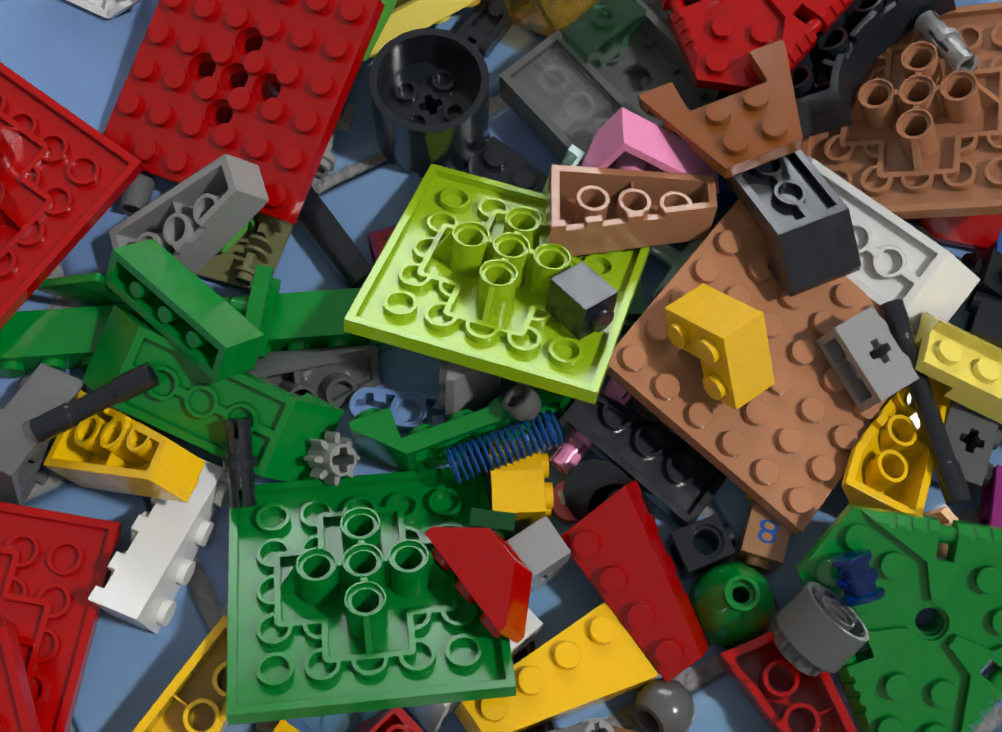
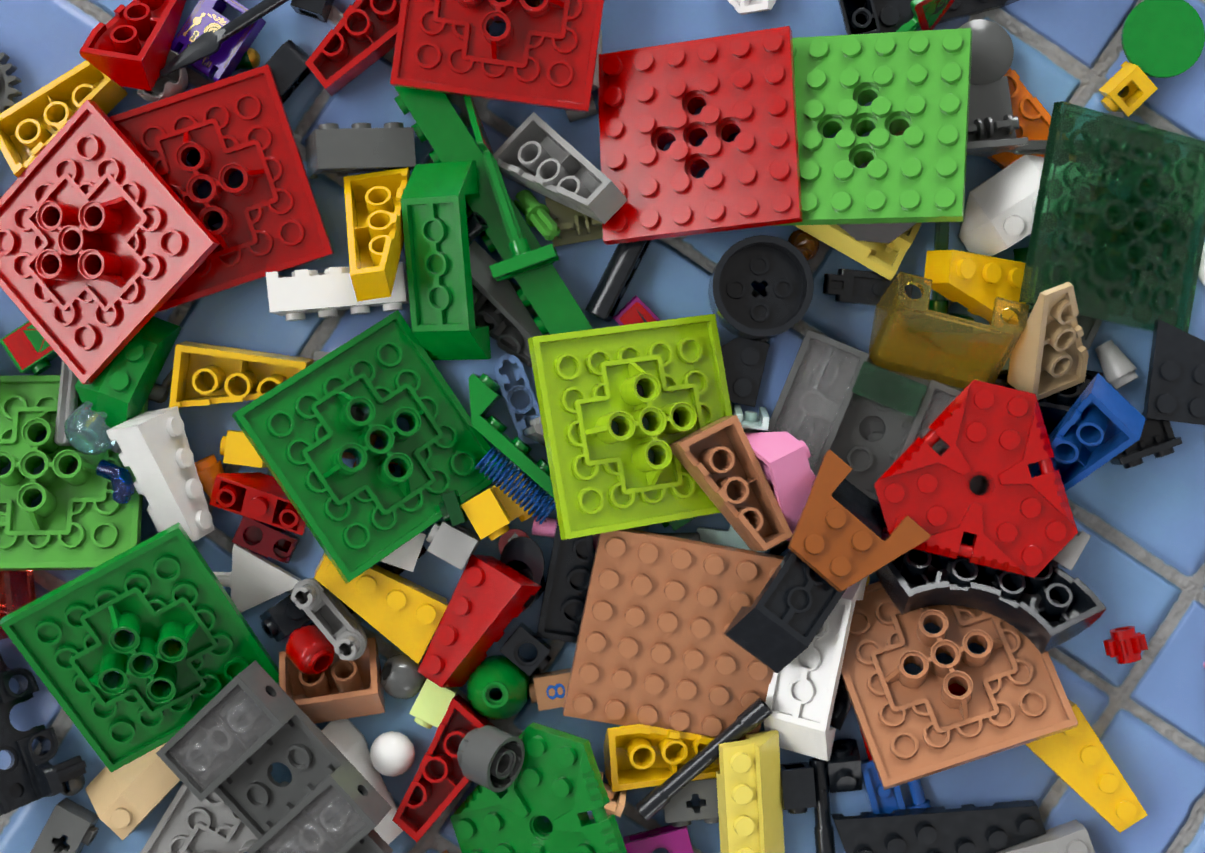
camera: 65 degrees right, 20 degrees up
(71, 414) = (409, 206): black piece -> none
(184, 309) = (488, 216): green brick -> none
(230, 278) = (536, 214): none -> bright green axle
(240, 462) = (409, 314): black pin -> none
(332, 458) = (450, 370): light grey gear -> none
(487, 574) = (412, 525): red slope -> none
(522, 402) = (542, 486): dark grey hinge -> none
(581, 300) = (632, 493): black brick -> none
(715, 690) = (432, 704): none -> yellowish green brick
(727, 340) = (653, 605): yellow brick -> none
(856, 578) = (535, 767): clear blue bush -> none
(867, 359) = (709, 690): light grey brick -> none
(947, 41) = (1002, 658): light grey pin -> none

